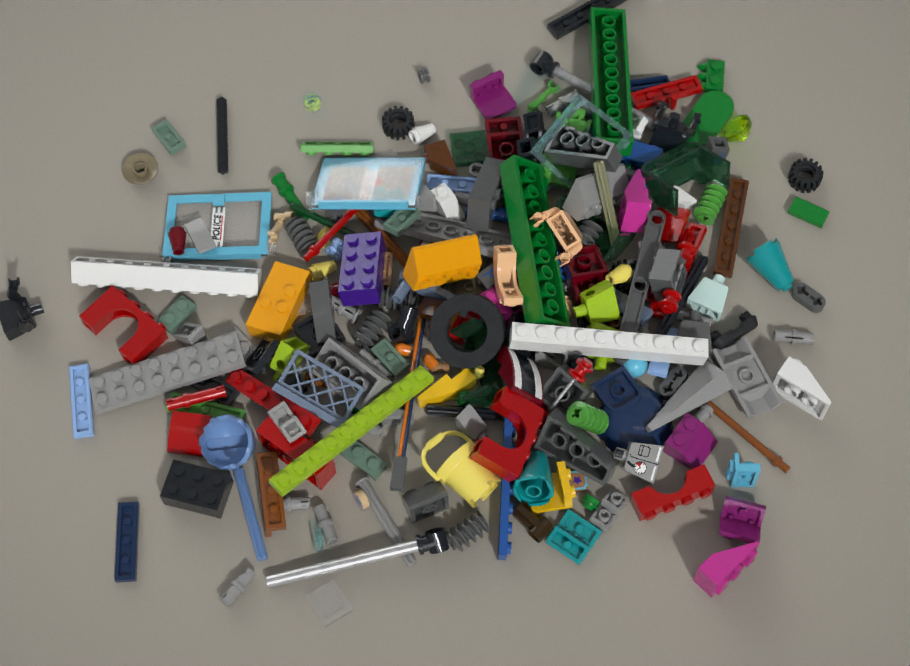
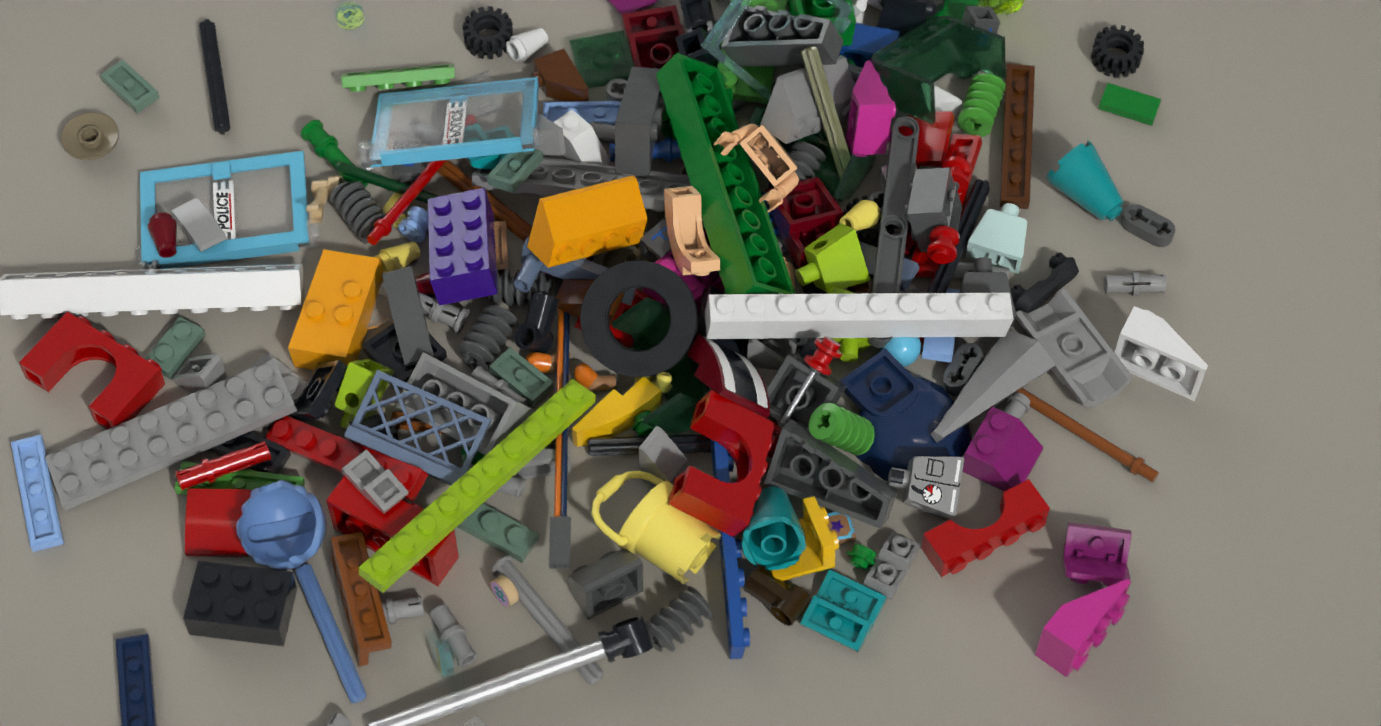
camera: 10 degrees left, 5 degrees down
(742, 474) = (1088, 487): medium azure bracket -> none

